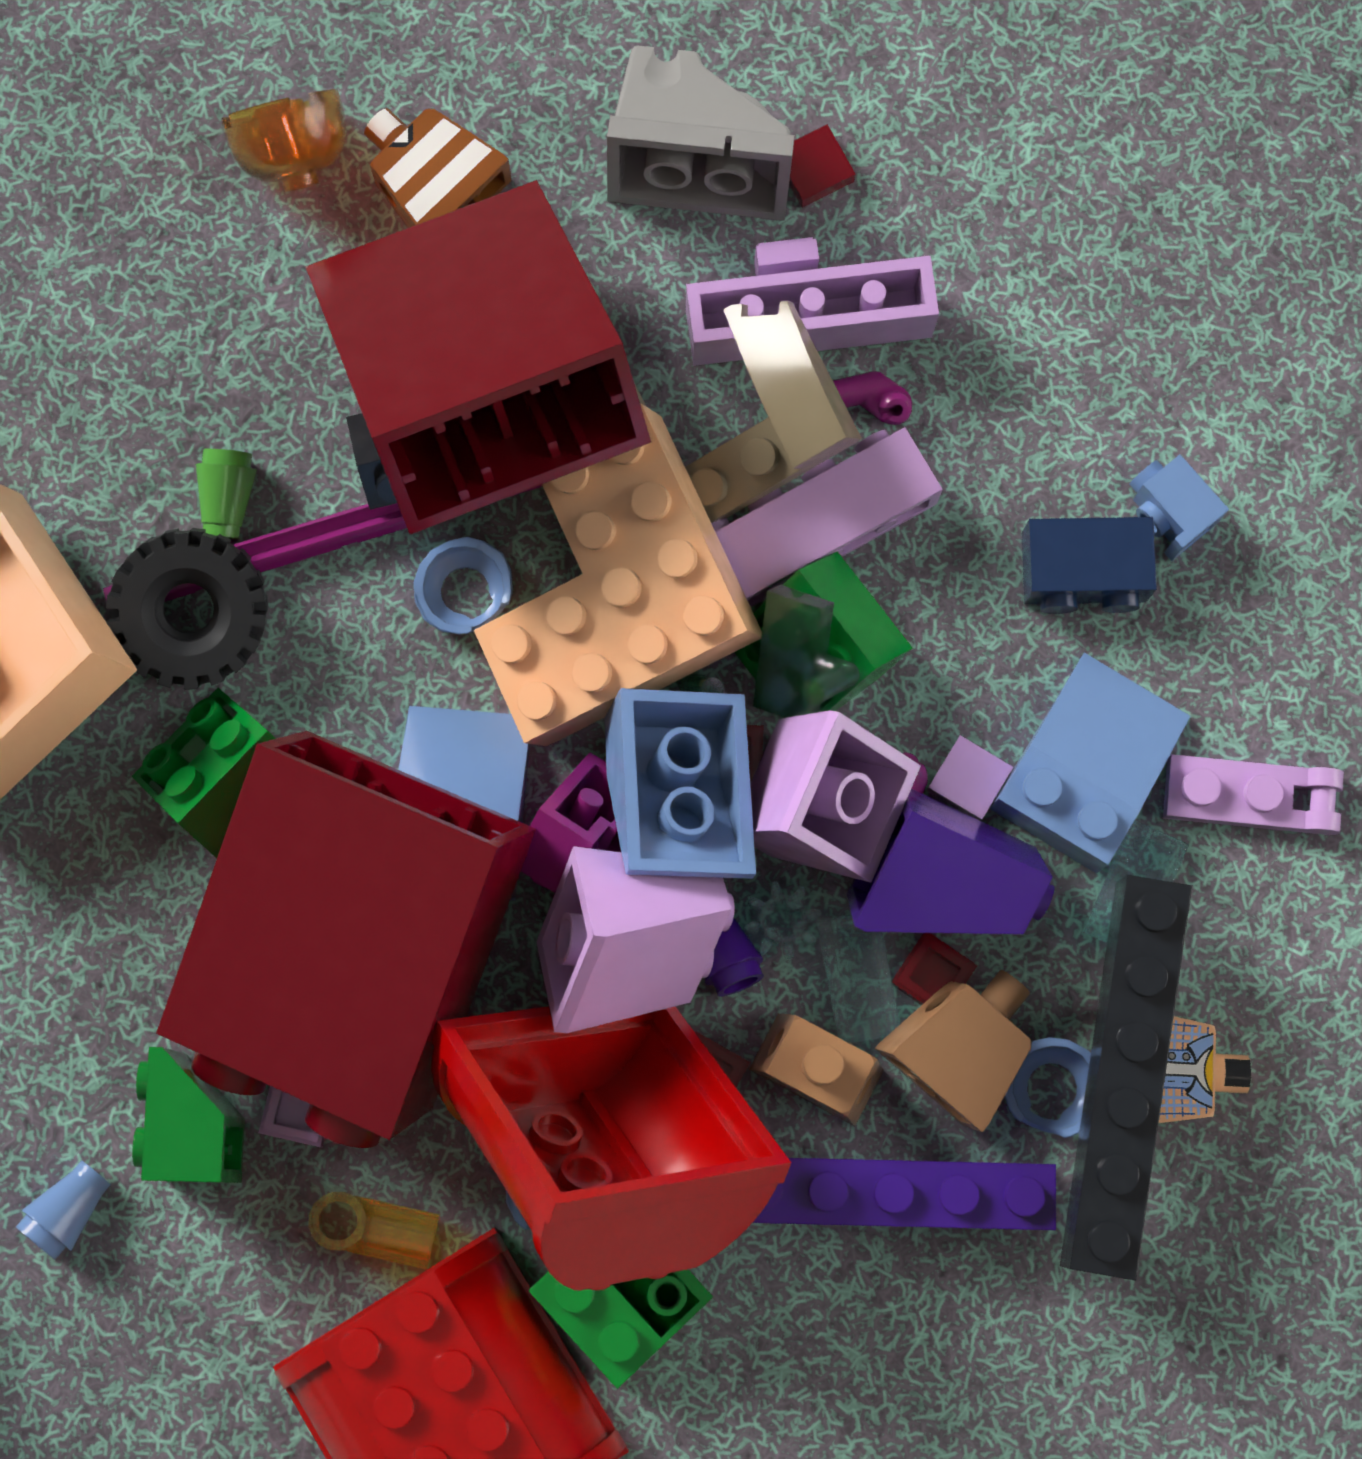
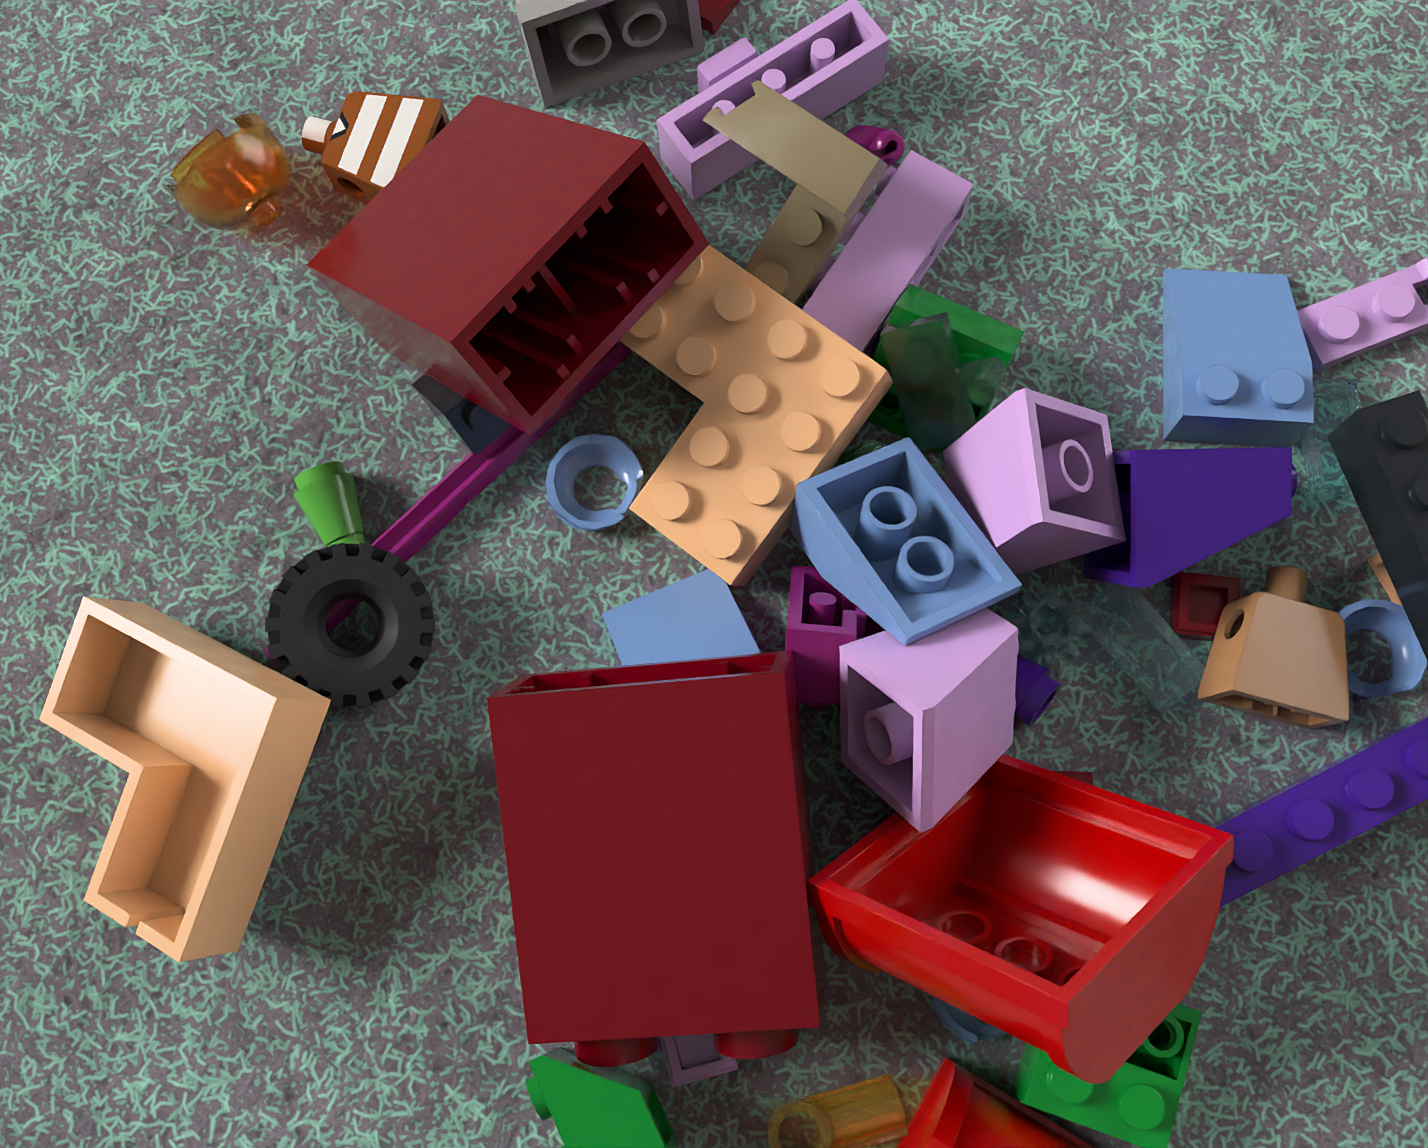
camera: 20 degrees left, 5 degrees down
(203, 767) = (445, 765): green slope -> none
(817, 1067) = (1161, 741): medium nougat torso -> none
(969, 778) = (1136, 418): lavender tile -> none
(1088, 563) = (1128, 188): dark blue brick -> none
(1178, 502) = (1172, 106): medium blue brick -> none

